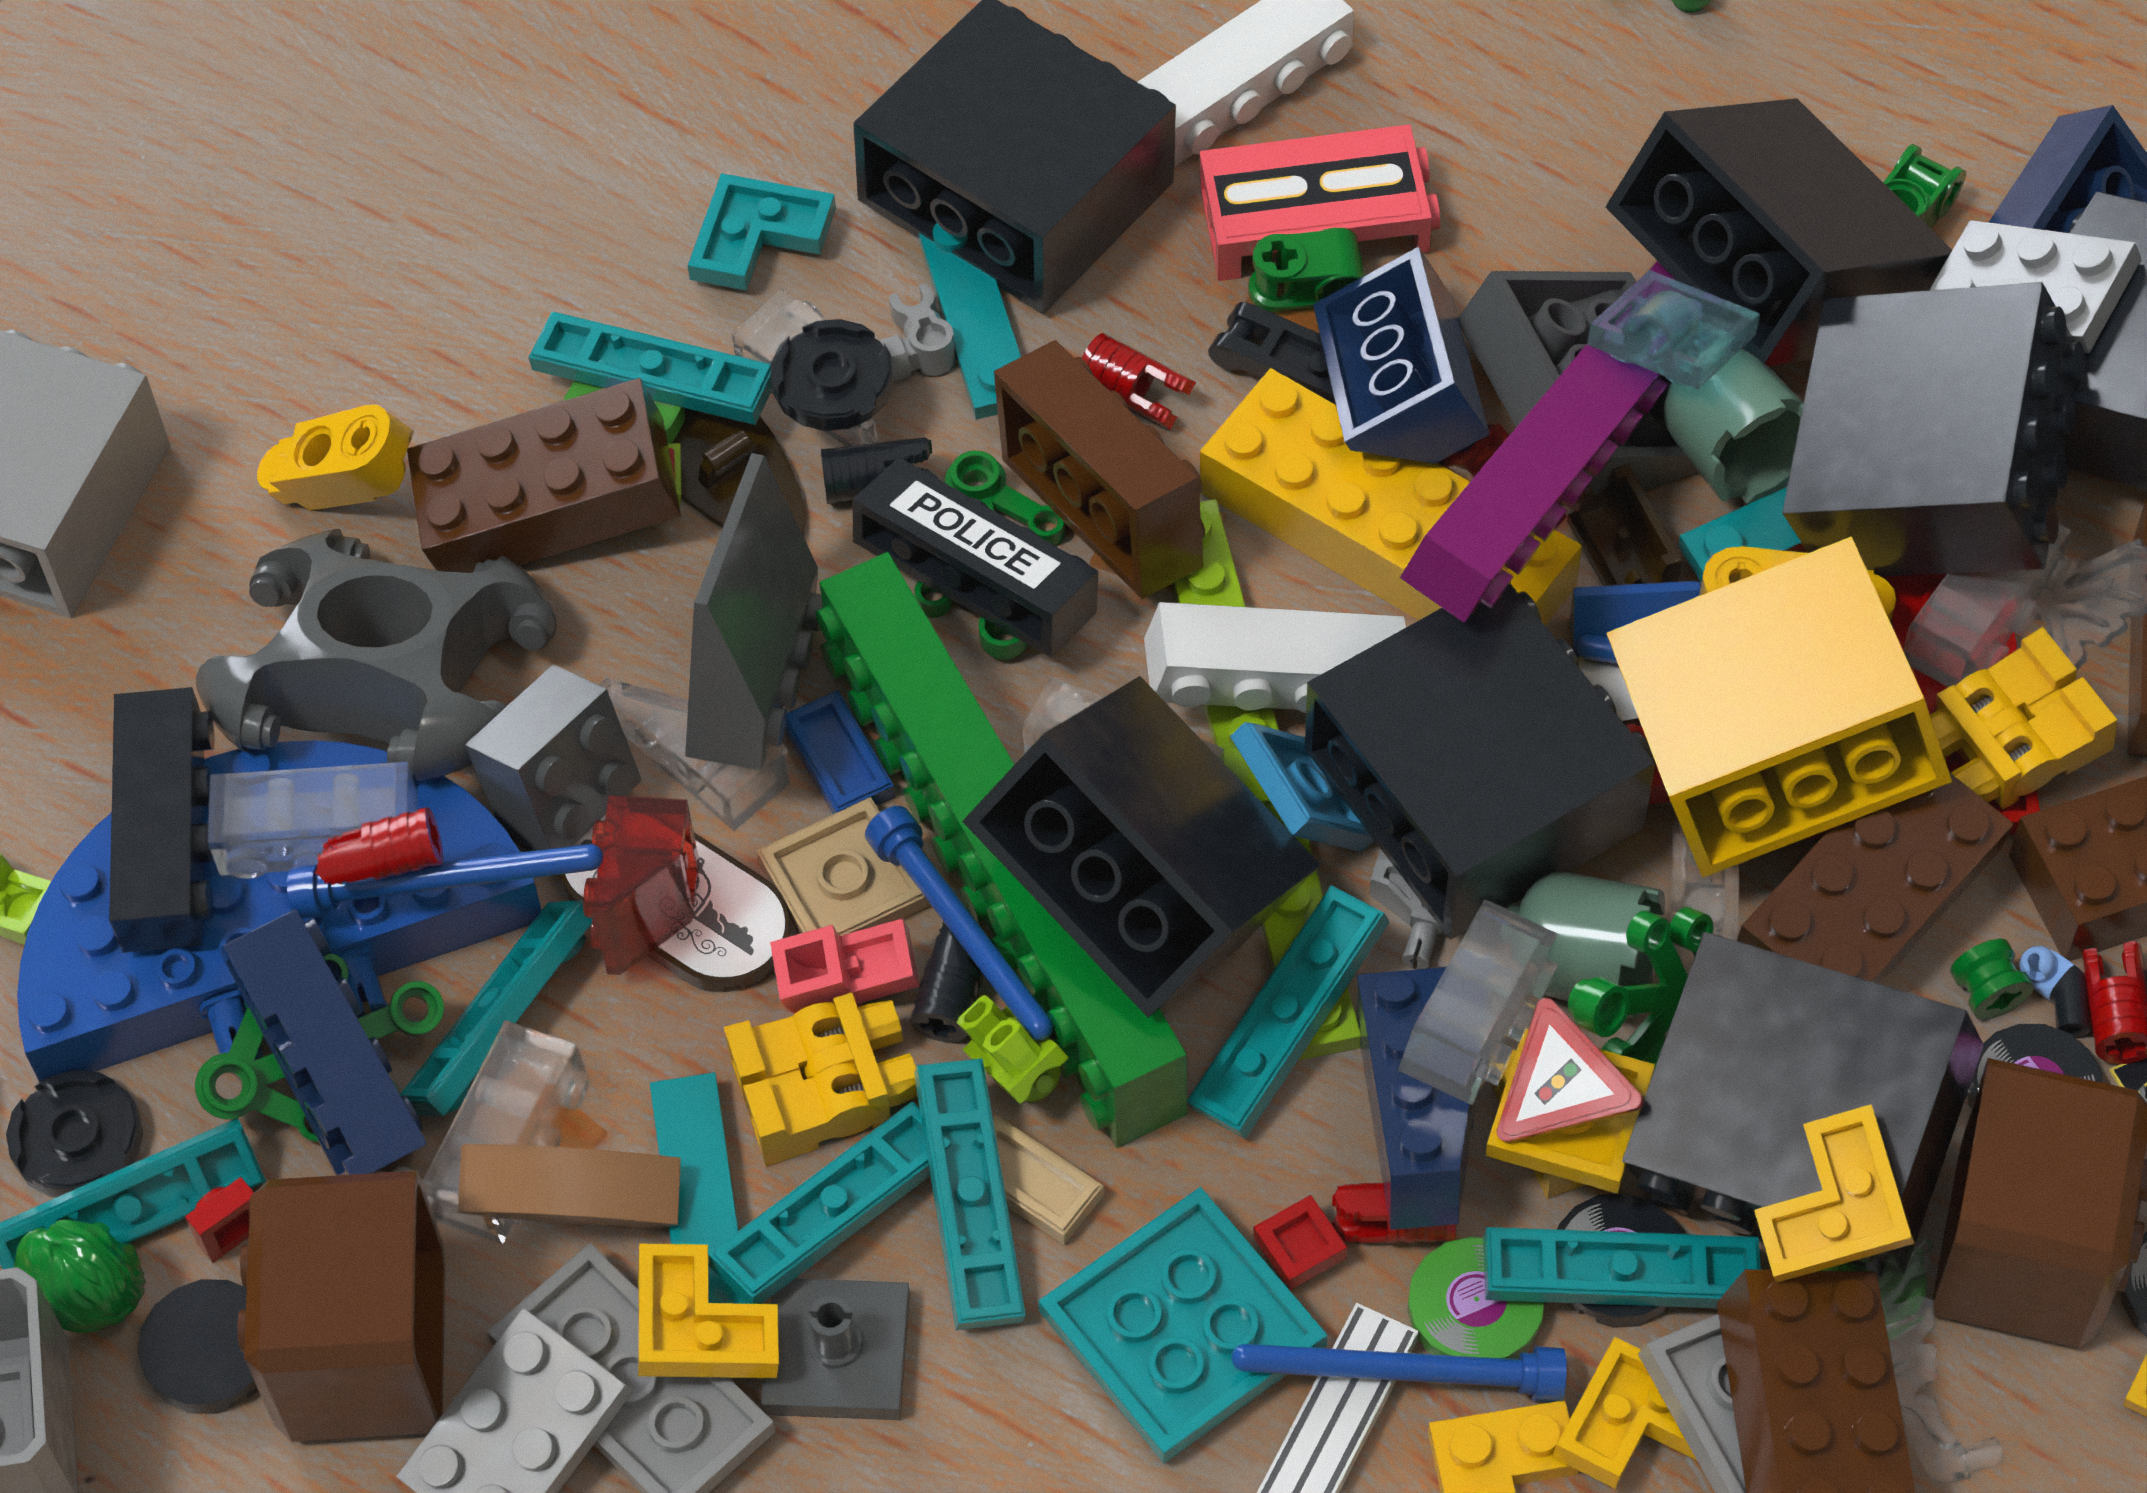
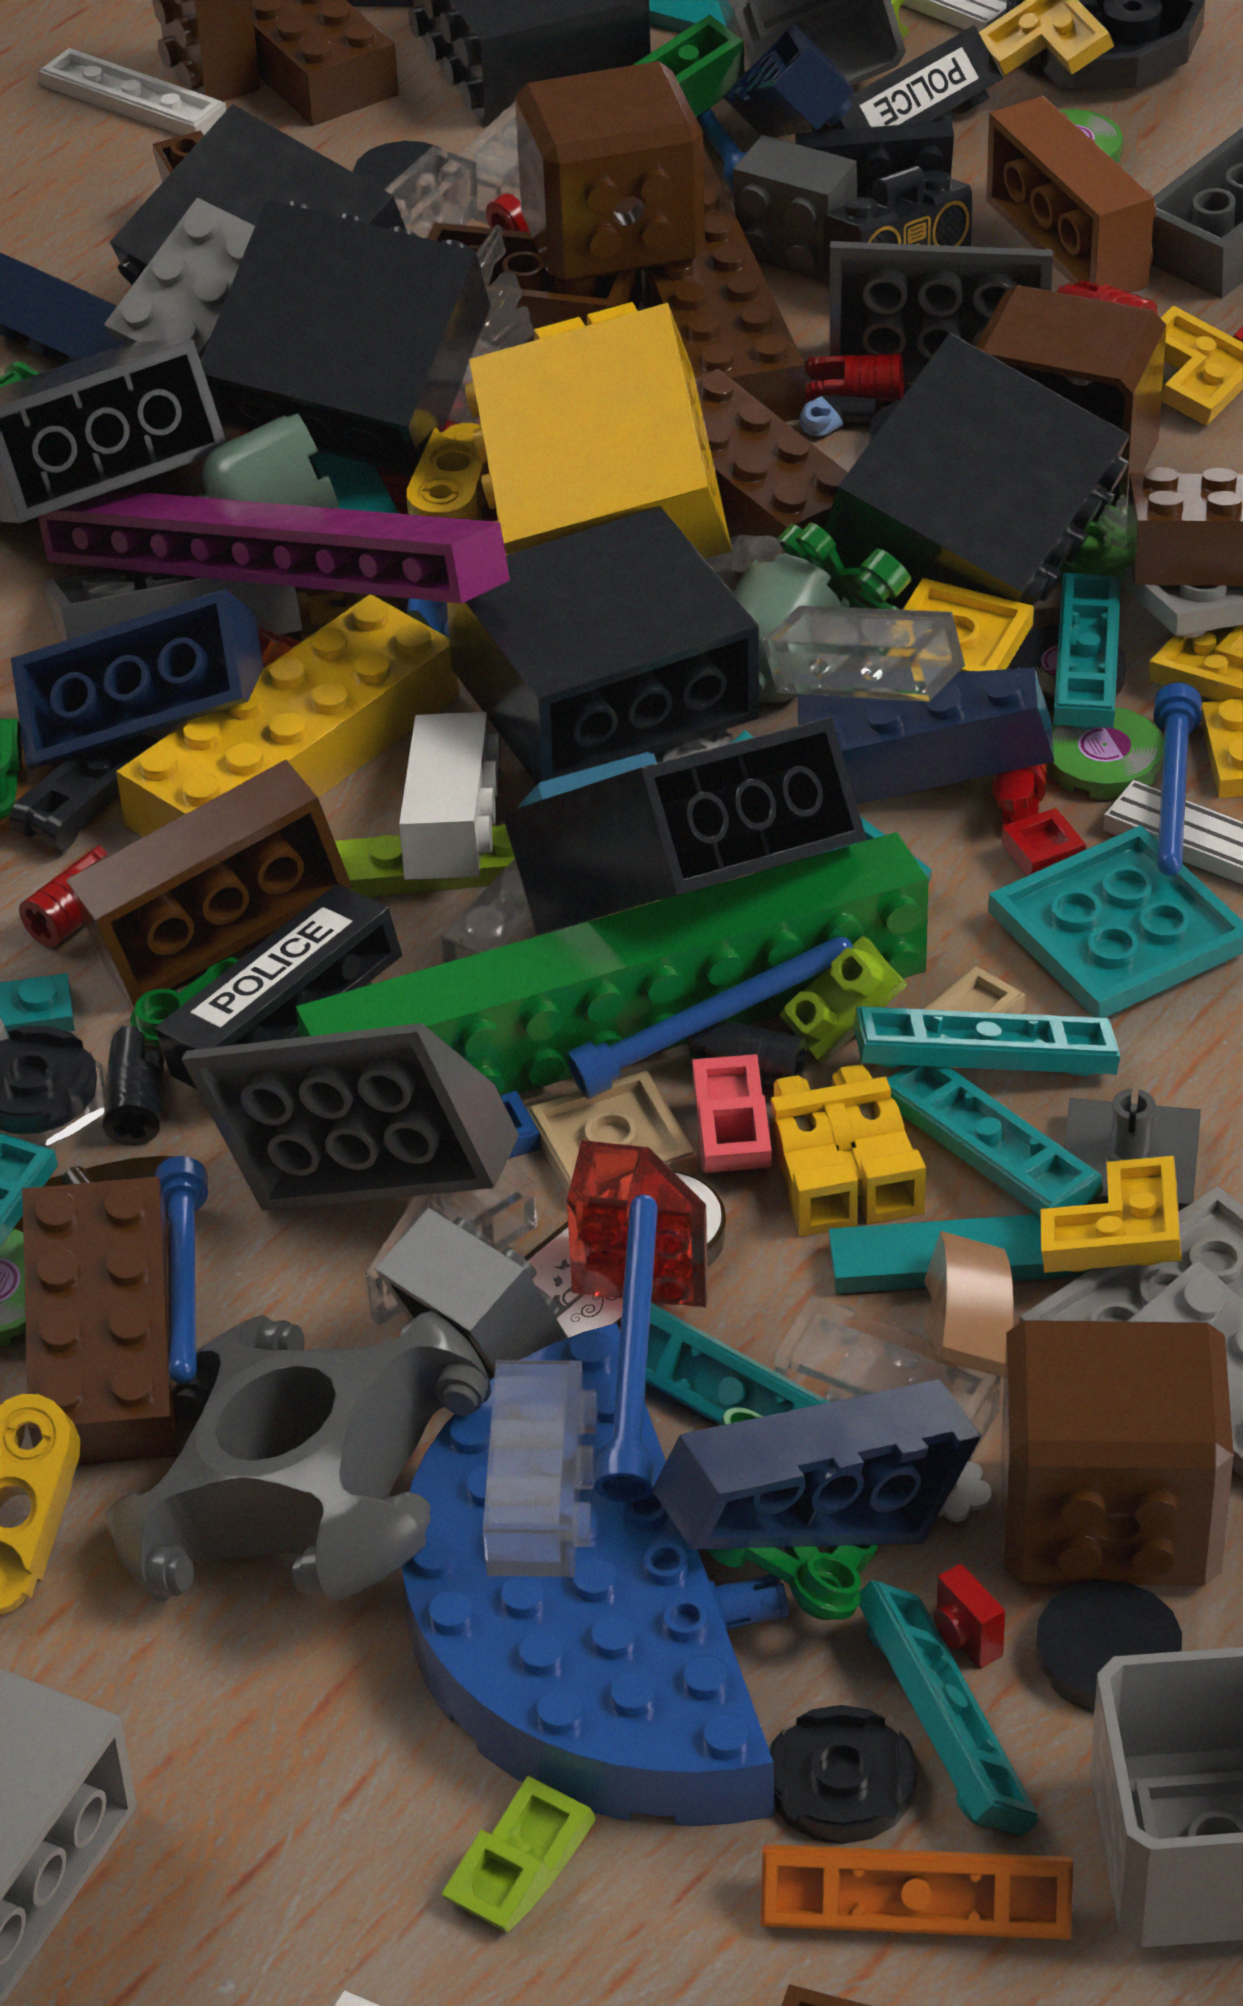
camera: 85 degrees left, 15 degrees down
(83, 1273) = (1045, 1724): green hair -> none
(159, 820) = (511, 1604): black brick -> none
(382, 849) = (609, 1368): red hinge -> none
(593, 537) = (184, 1192): none -> blue piece
(1562, 1080) = (955, 588): piece -> none
(1673, 329) = (196, 467): clear light blue plate -> none
(1854, 1211) = (1106, 427): yellow plate -> none
(1991, 979) = (832, 434): green wheel -> none

